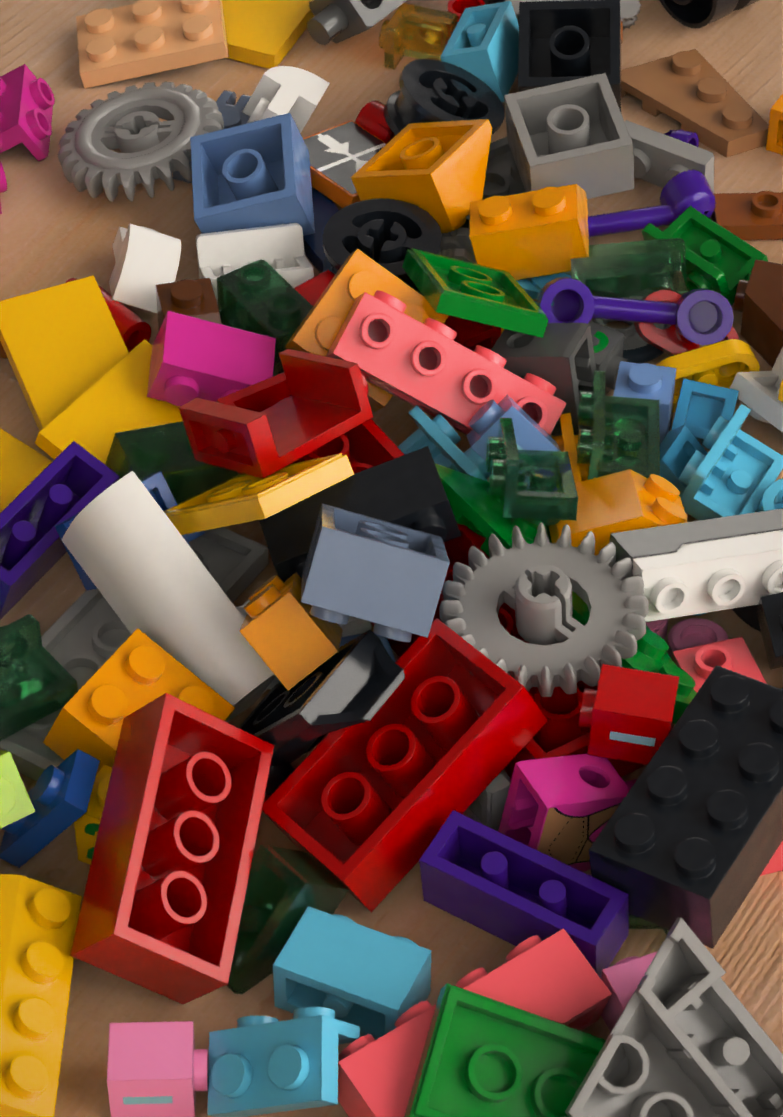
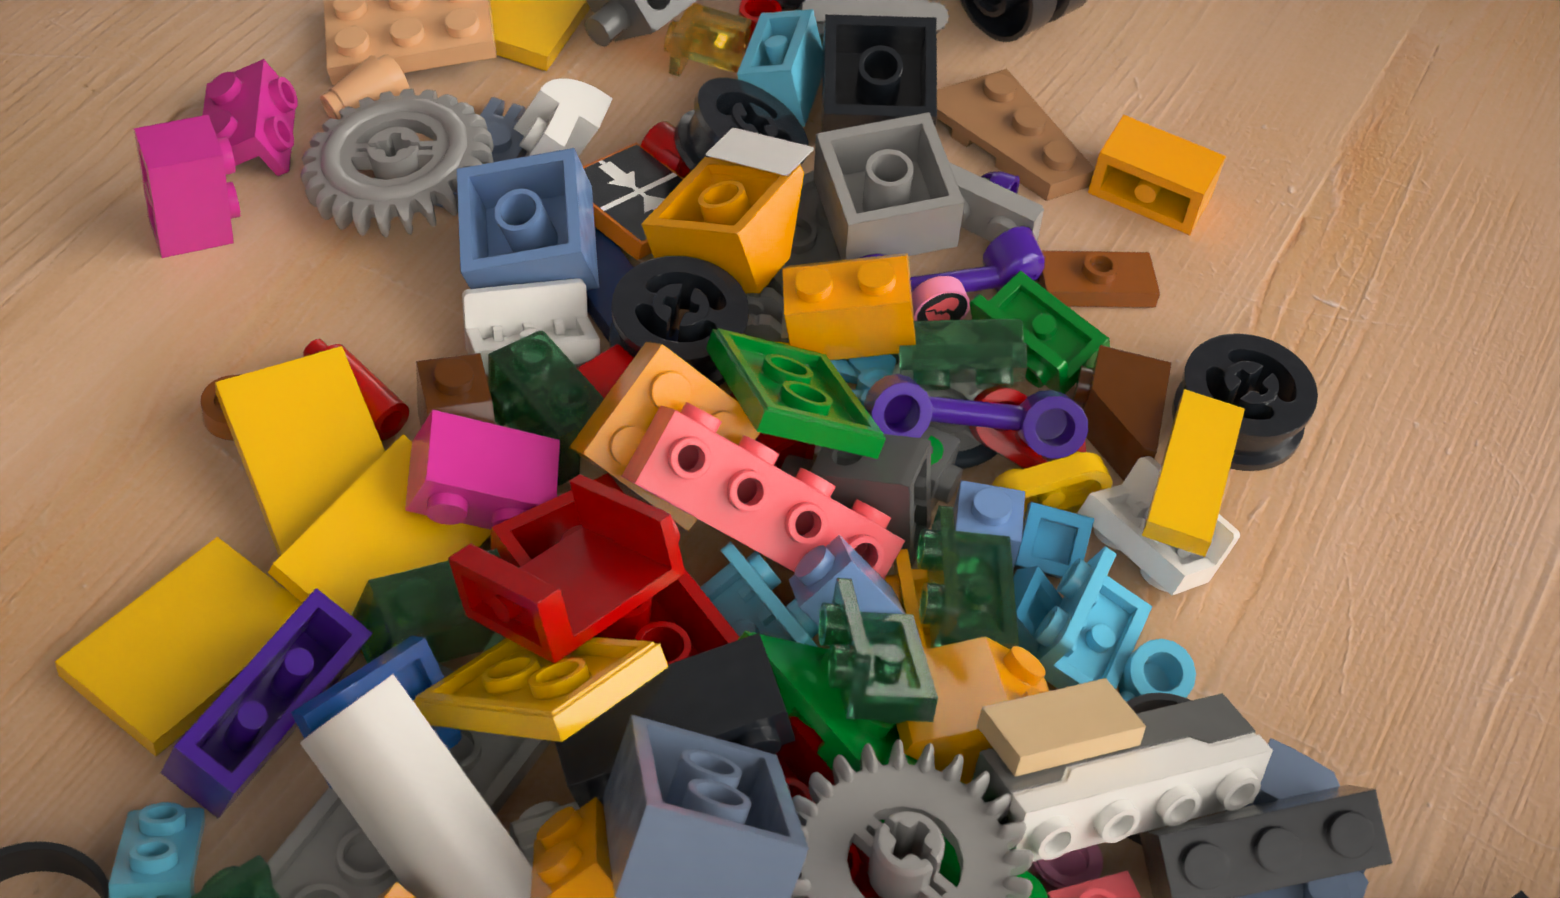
camera: 10 degrees left, 5 degrees up
(114, 78) = (366, 80): none -> light nougat cone
(142, 262) = (401, 328): white brick -> none
(454, 112) = (760, 151): none -> white sticker
(616, 228) = (940, 300): none -> tile
(679, 515) = (1060, 726): none -> tan tile

